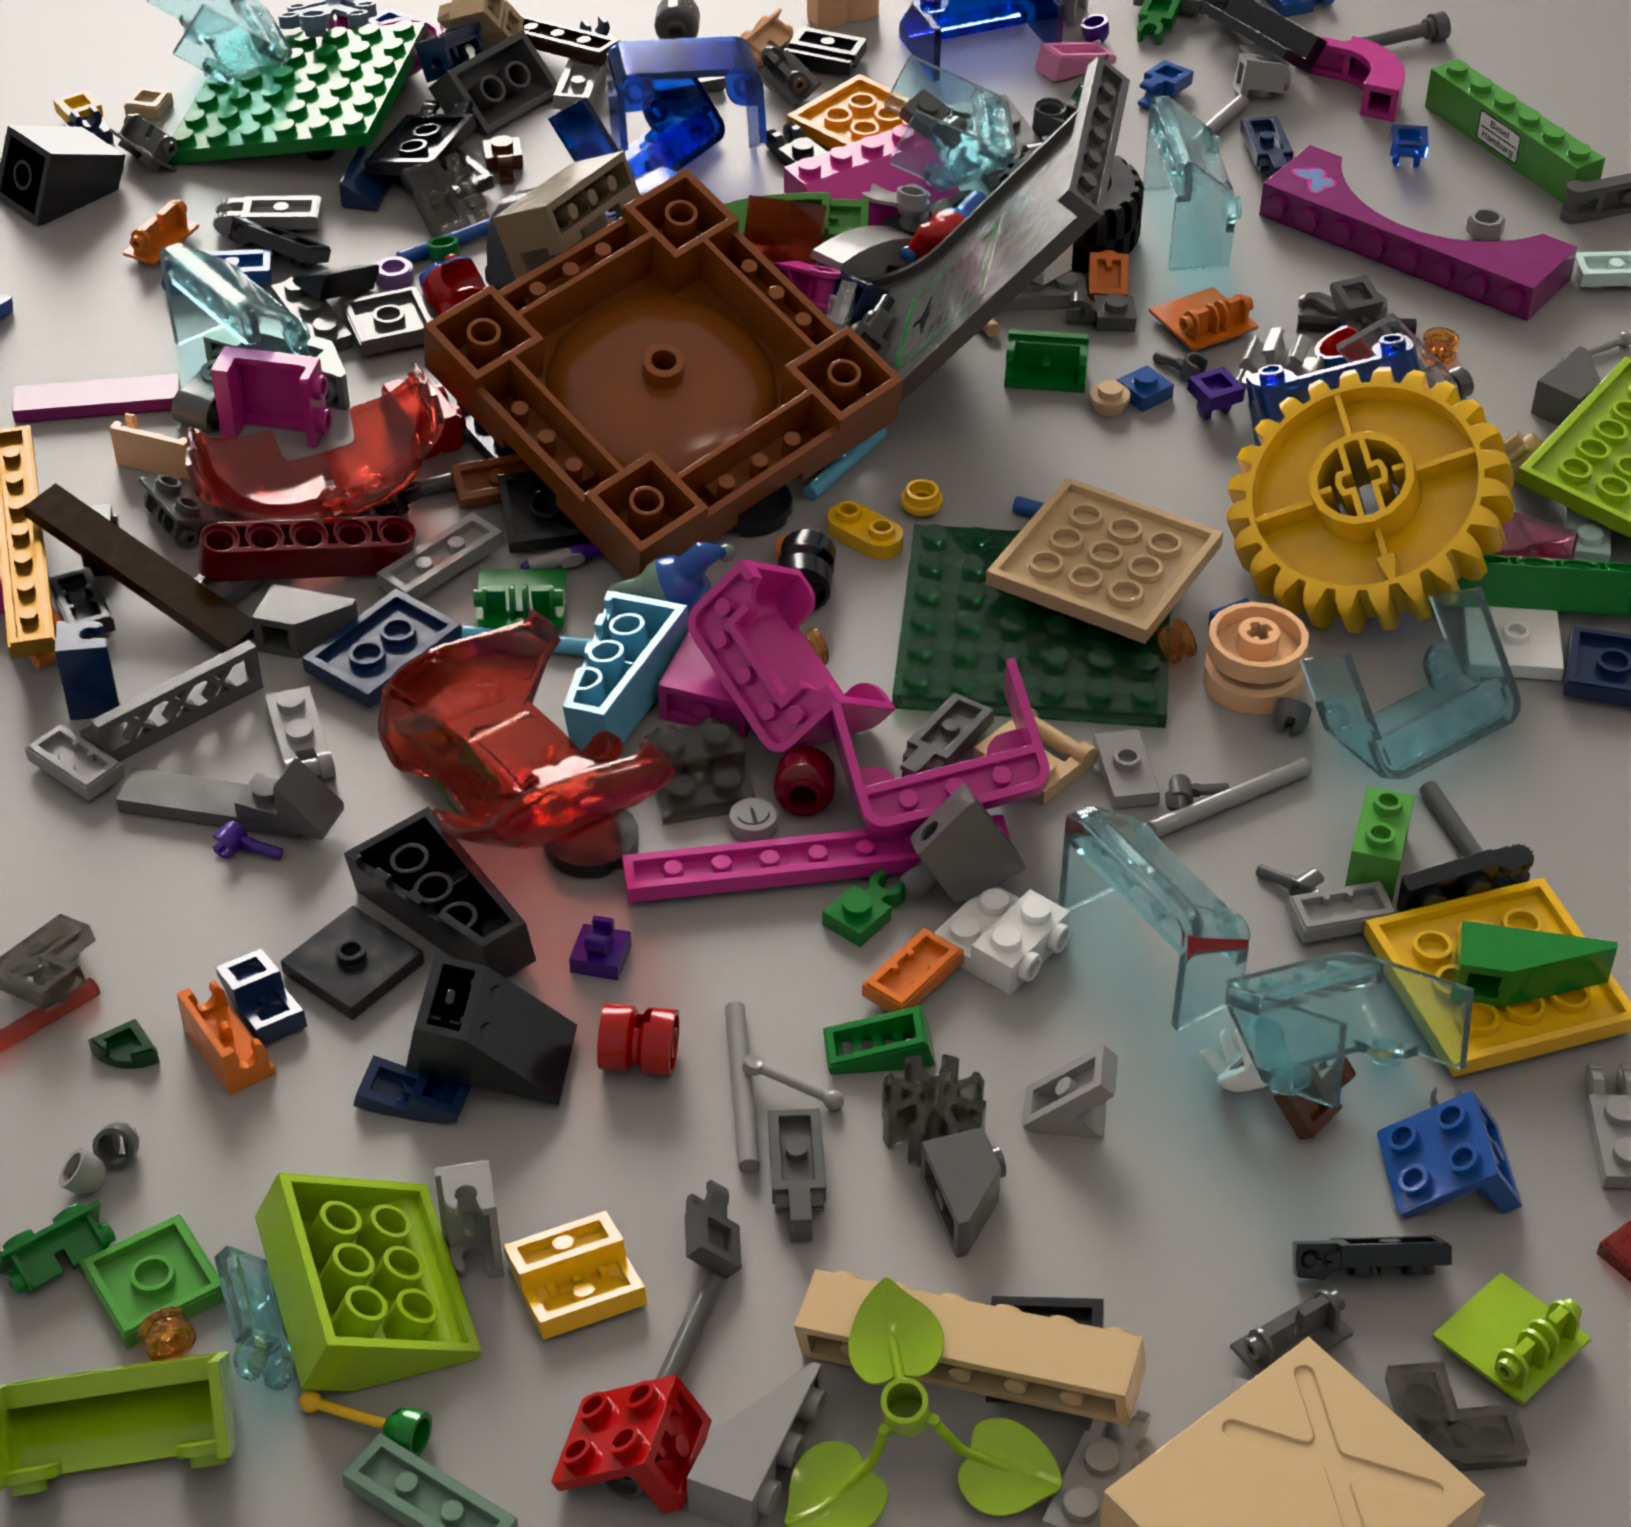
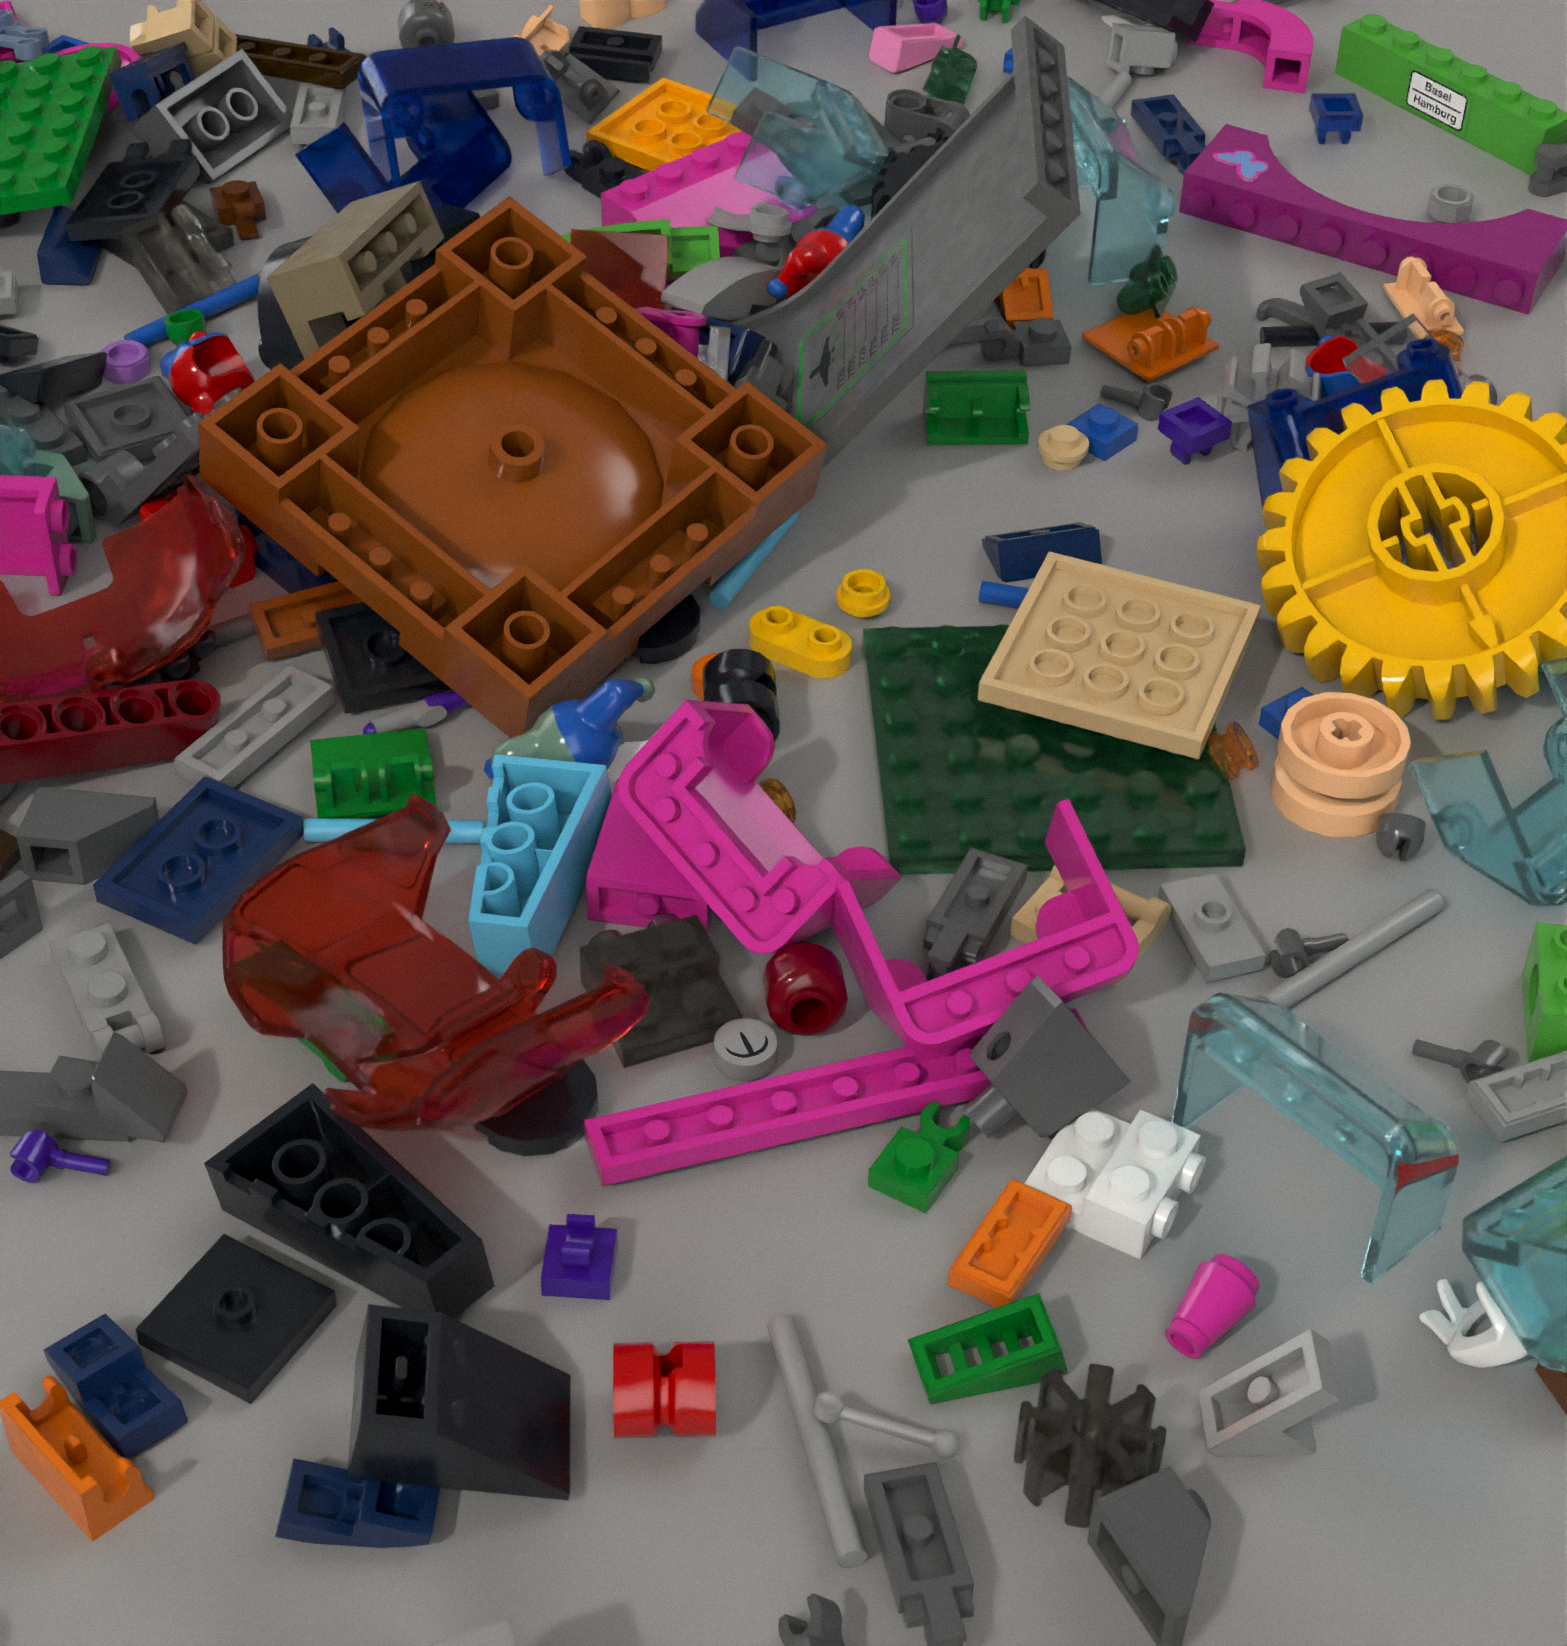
camera: 10 degrees left, 0 degrees up
(374, 365) = (123, 485): none -> dark grey hinge
(1048, 475) = (1022, 553): none -> dark blue slope
(1050, 1028) = (1213, 1303): none -> dark pink cone
(1214, 273) = (1149, 284): none -> clear green hinge
(1435, 302) = (1424, 298): none -> light nougat hinge

